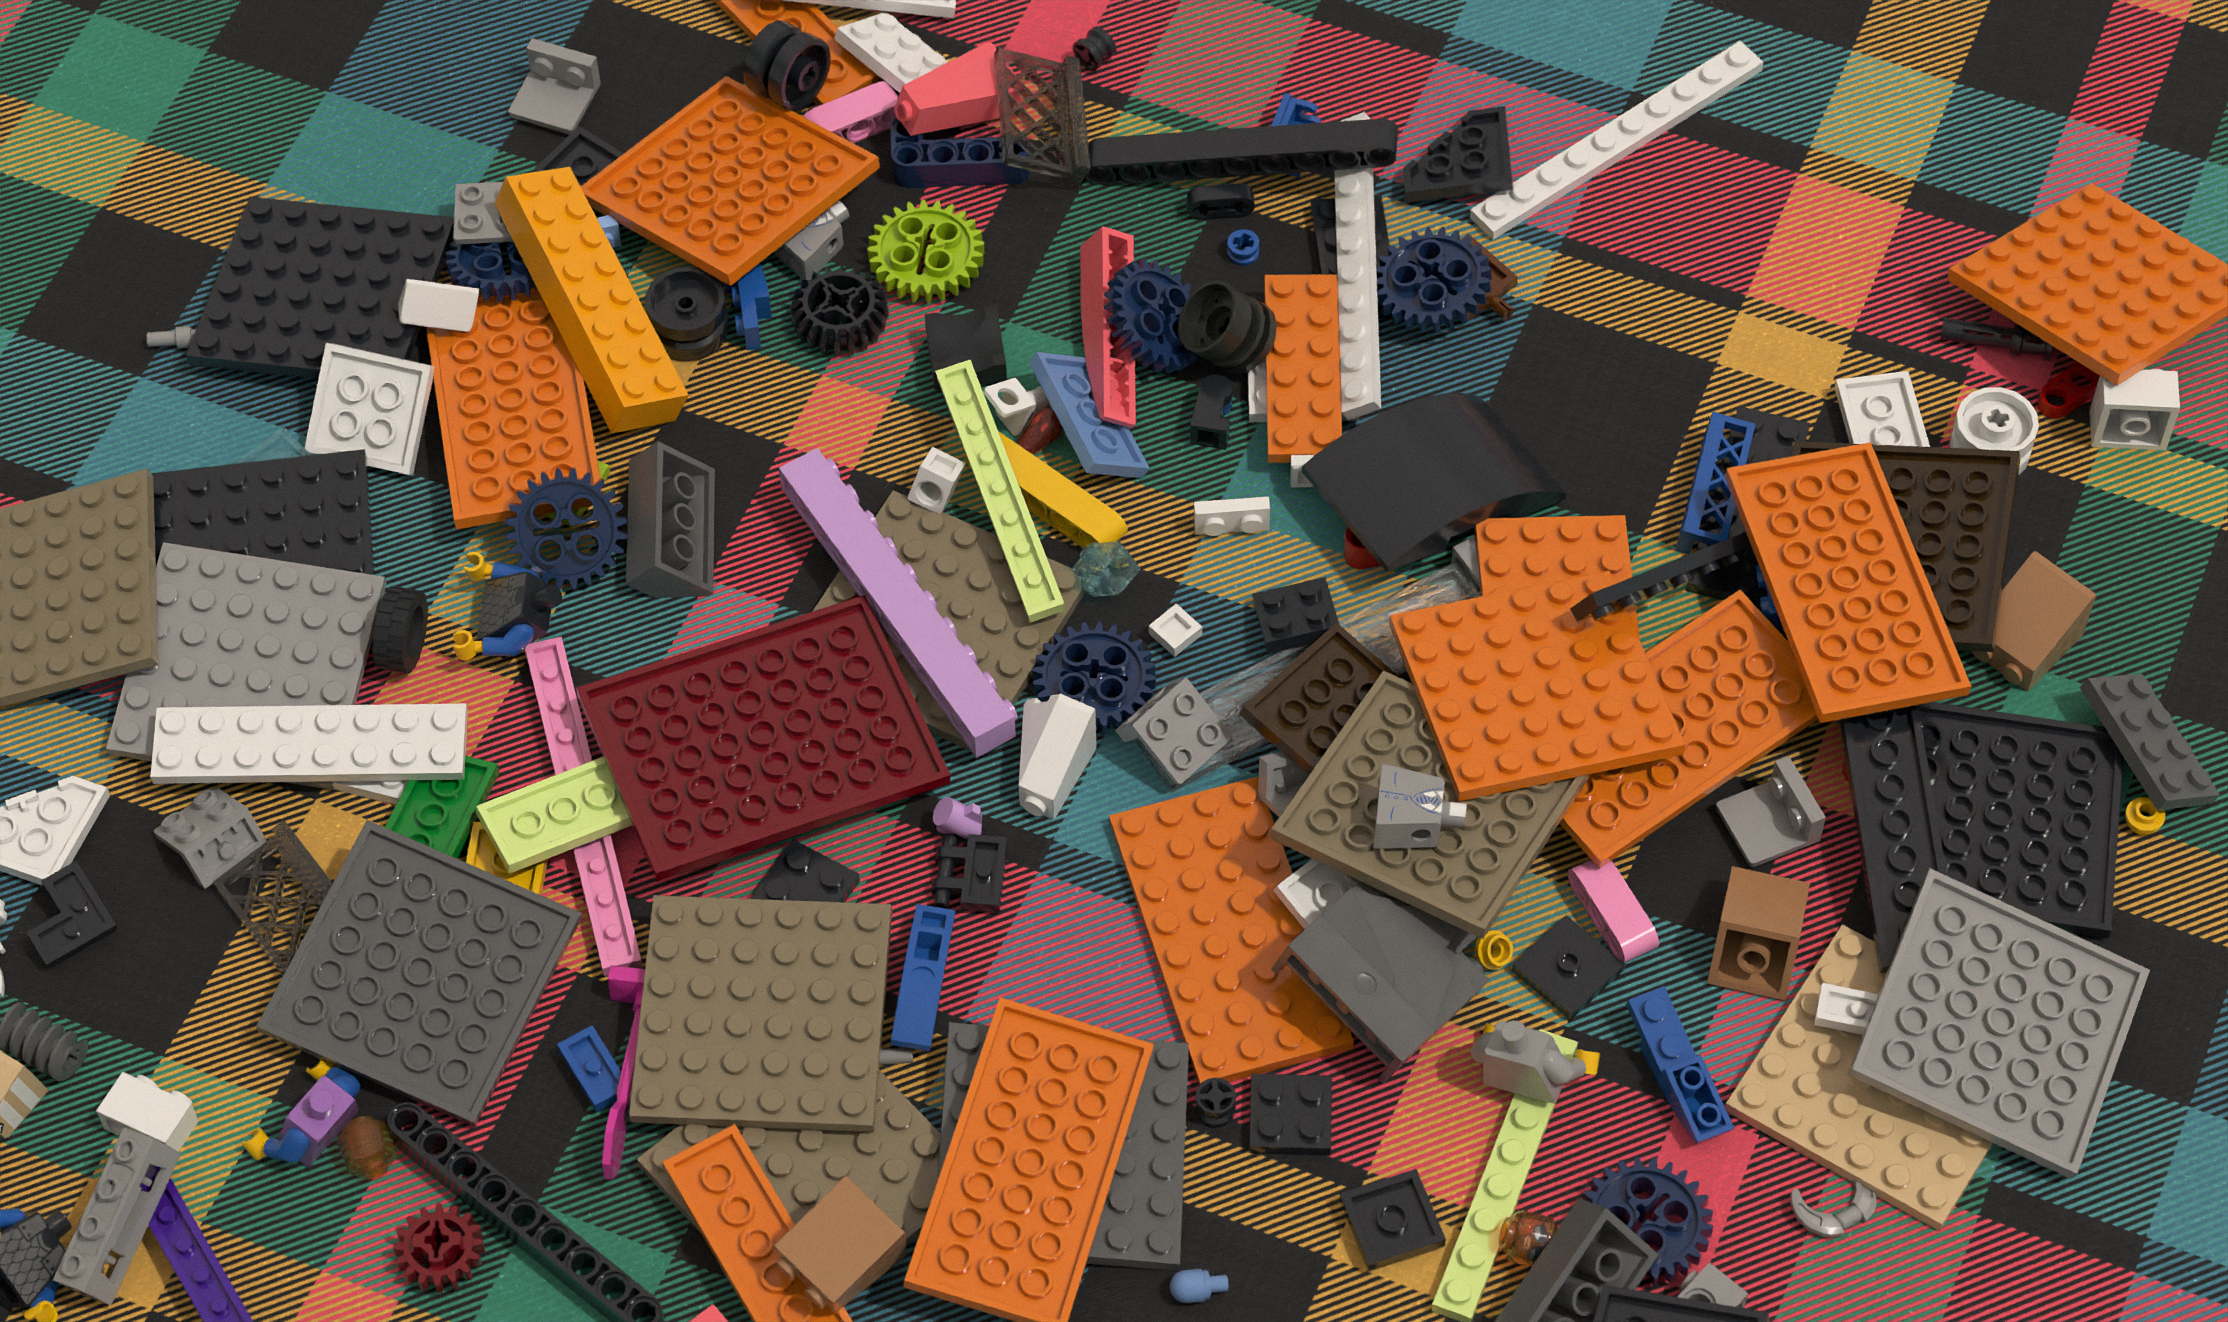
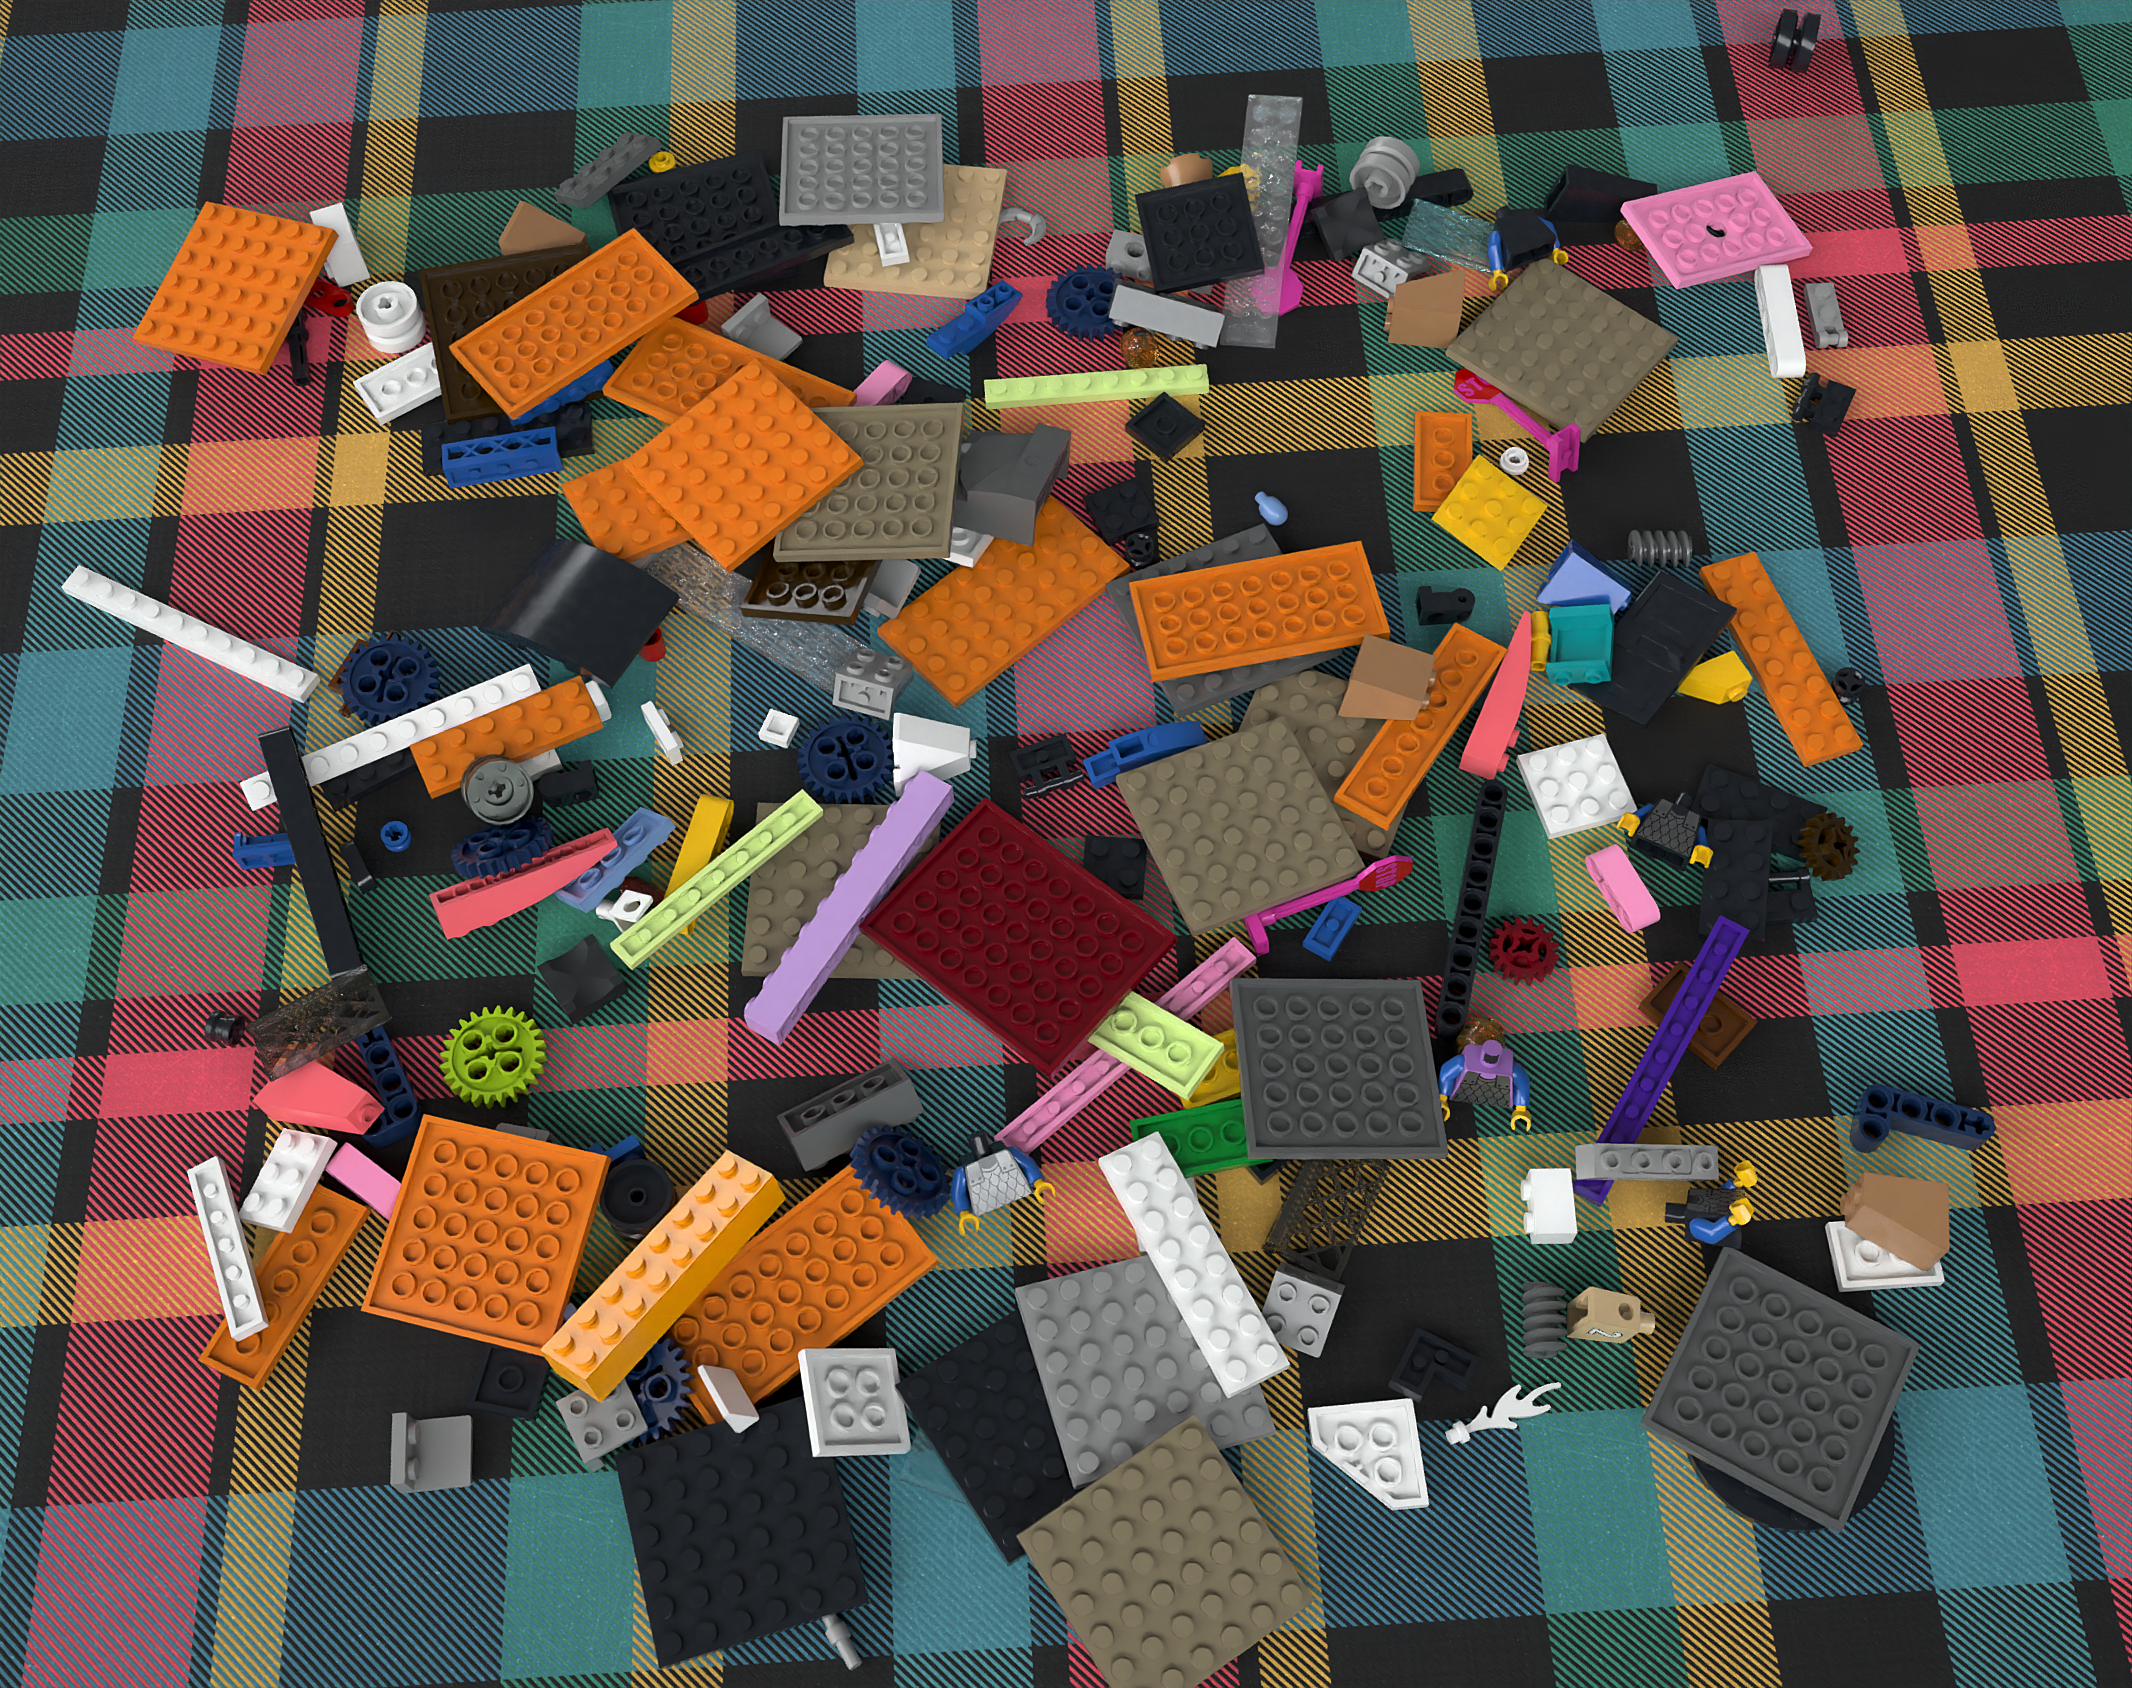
camera: 115 degrees left, 5 degrees up
(400, 629) = (1055, 1250): black tyre -> none
(787, 65) = (347, 1237): black wheel -> none
(836, 321) = (593, 1069): black gear -> none
(936, 480) = (725, 934): white brick -> none
(957, 818) = (1009, 789): lavender piece -> none
(1105, 568) = (751, 787): clear light blue brick -> none
(1294, 614) = (732, 656): black plate -> none
(1412, 809) = (894, 473): light grey torso -> none
(1464, 161) = (245, 711): black plate -> none
(1528, 1061) = (1026, 387): light grey torso -> none
(1655, 581) = (618, 423): black plate -> none
(1758, 933) = (852, 312): medium nougat slope -> none

